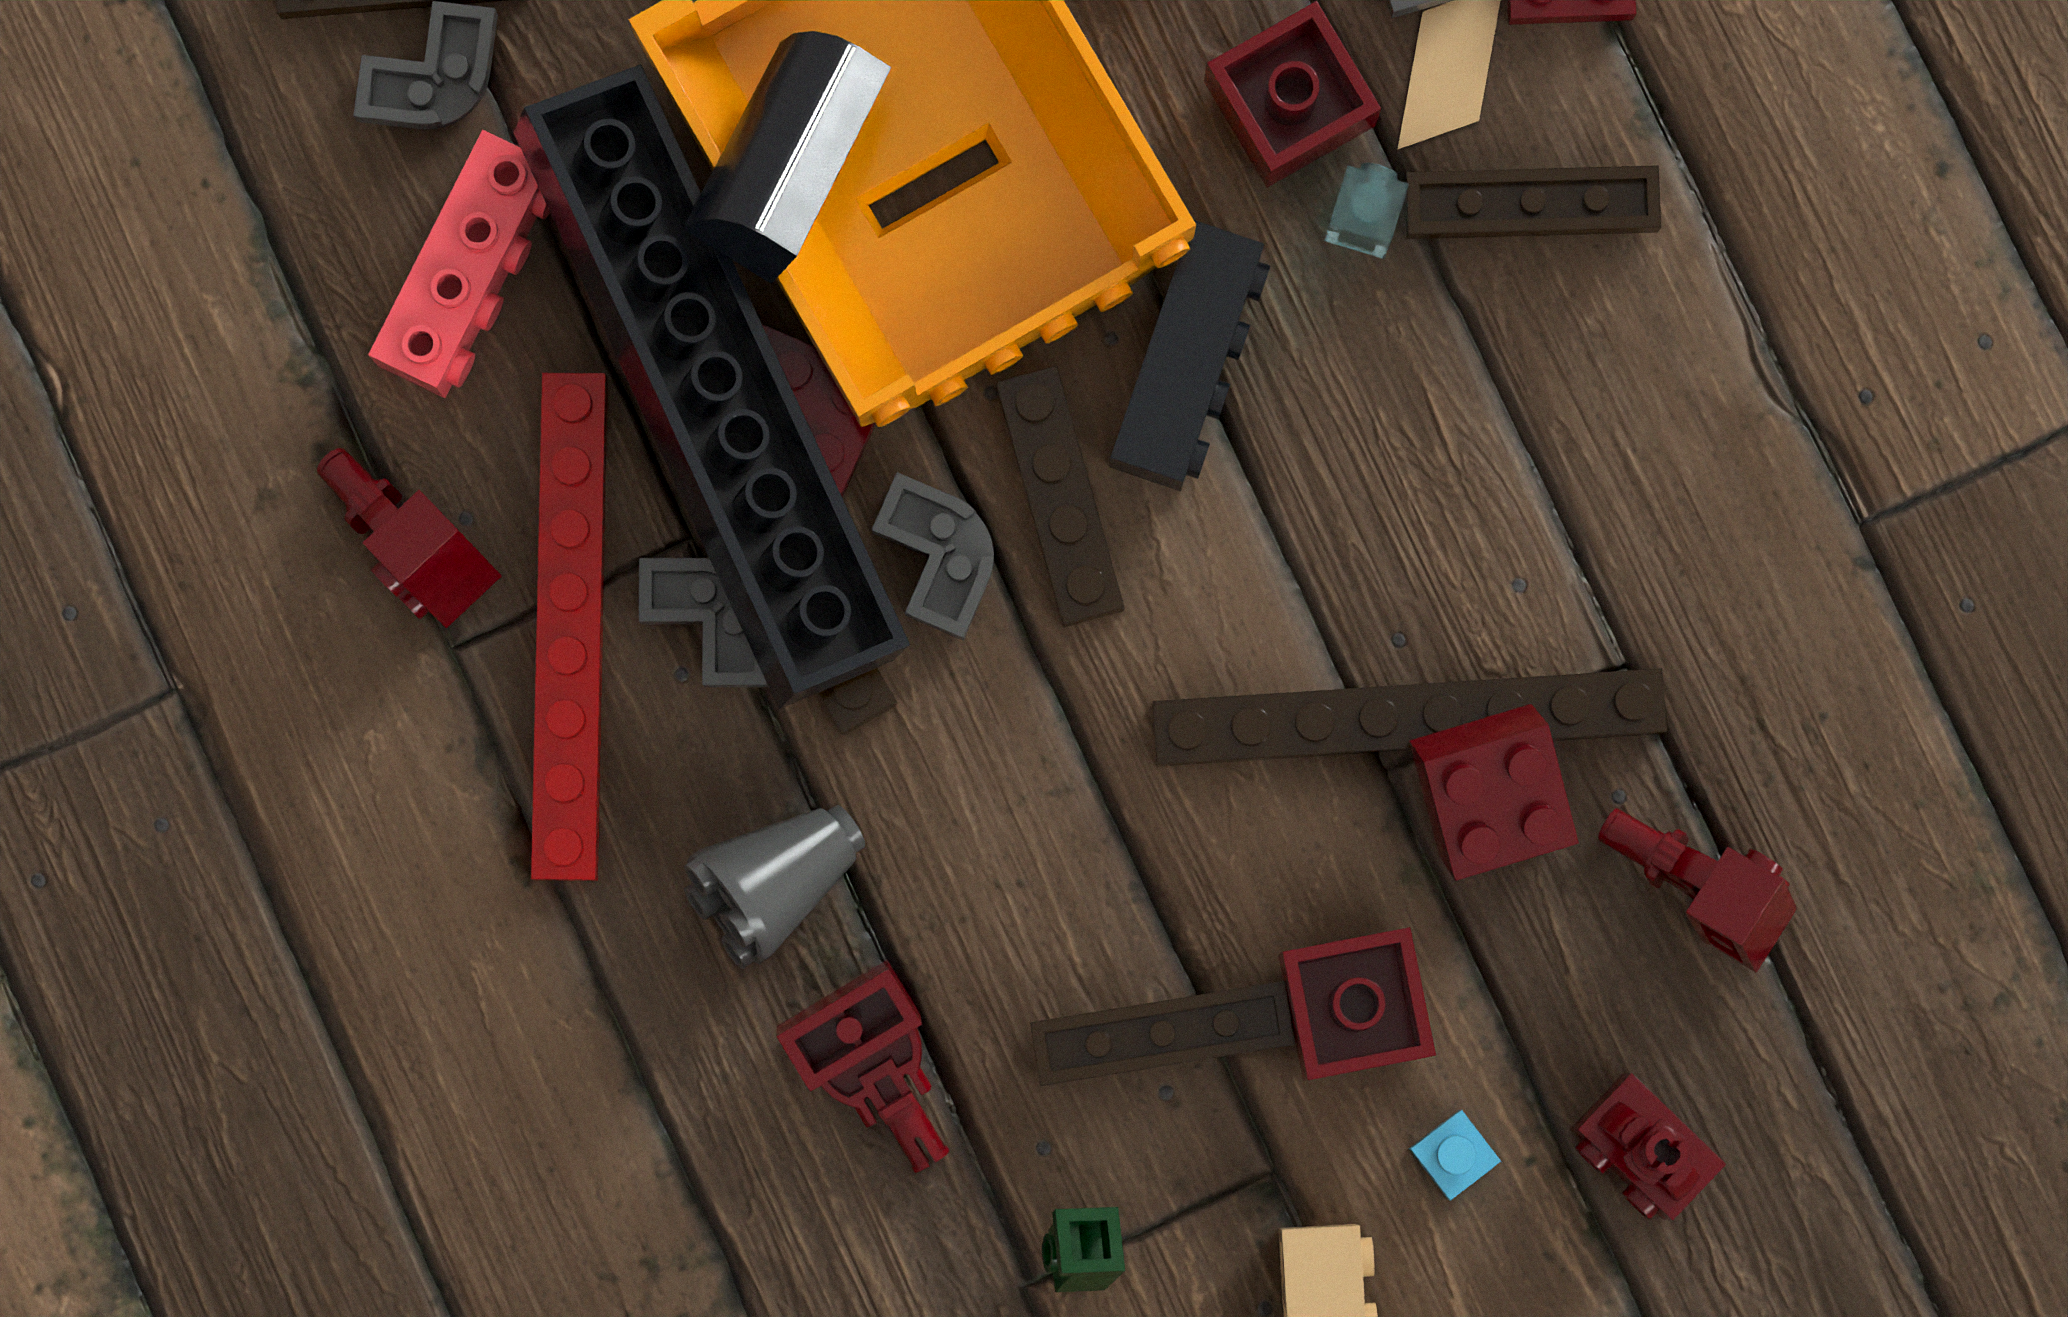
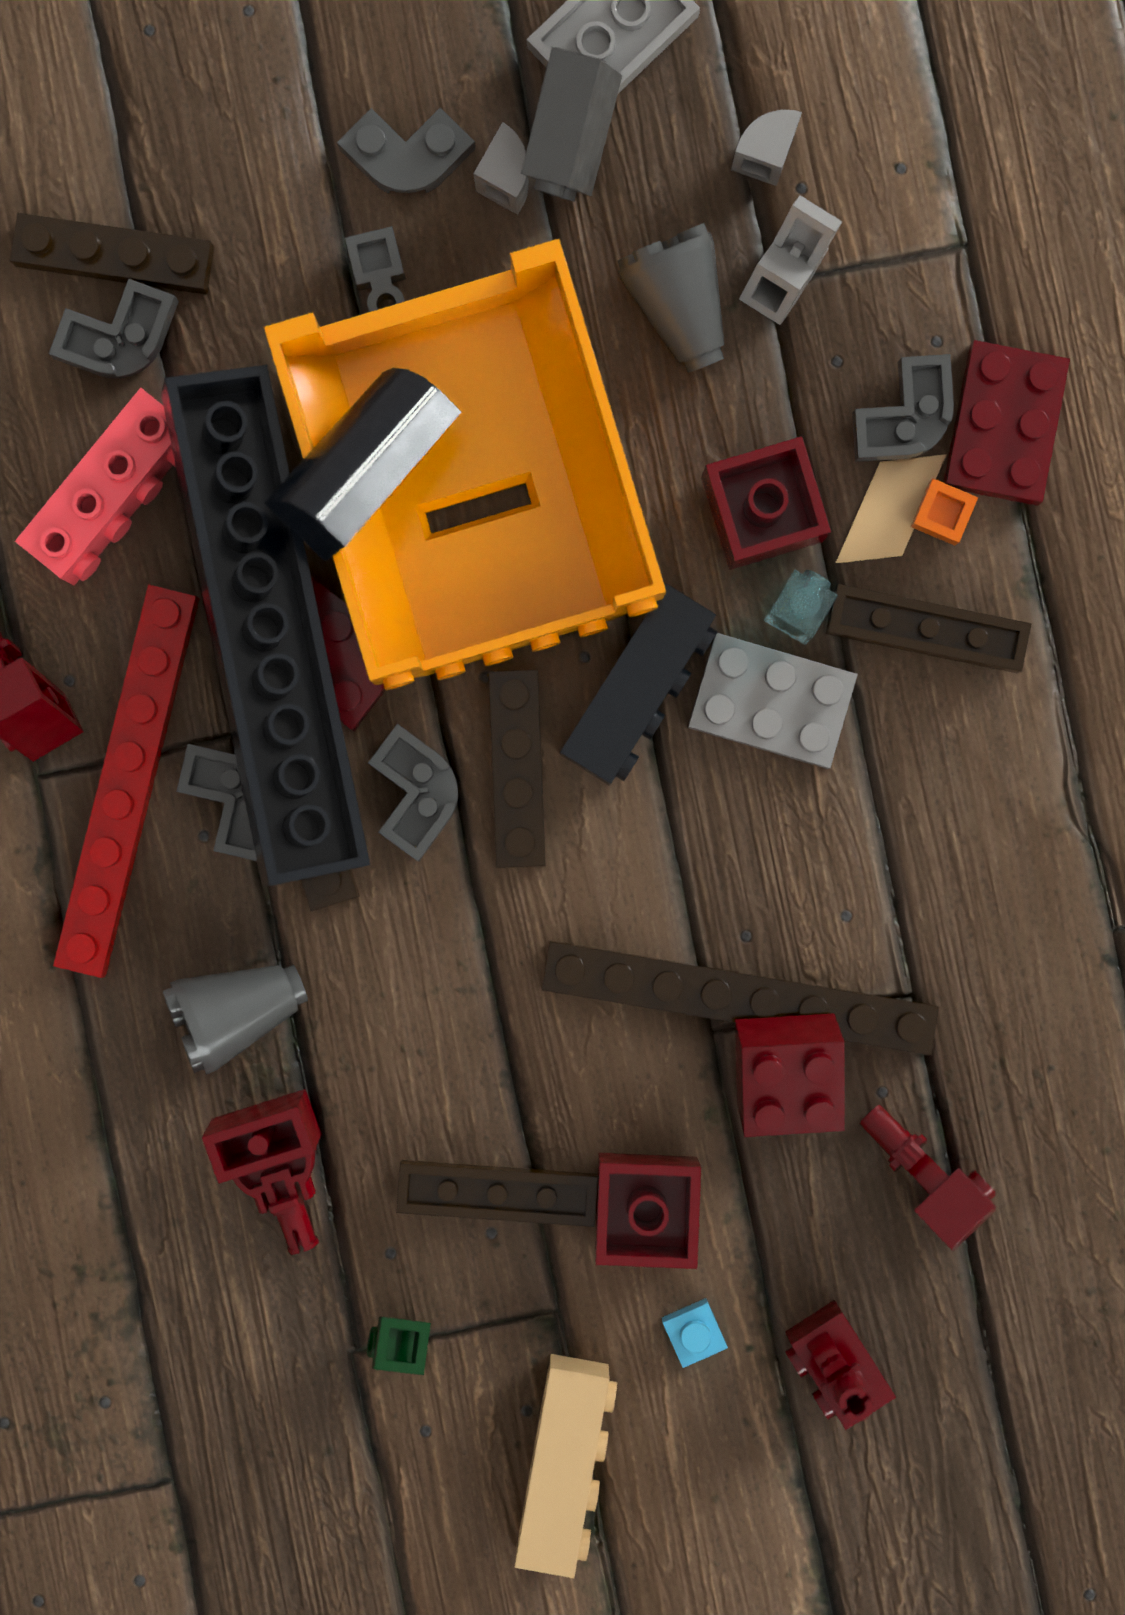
camera: 15 degrees right, 5 degrees up
(1360, 337) = (772, 700): none -> light grey plate
(1517, 54) = (944, 512): none -> orange plate

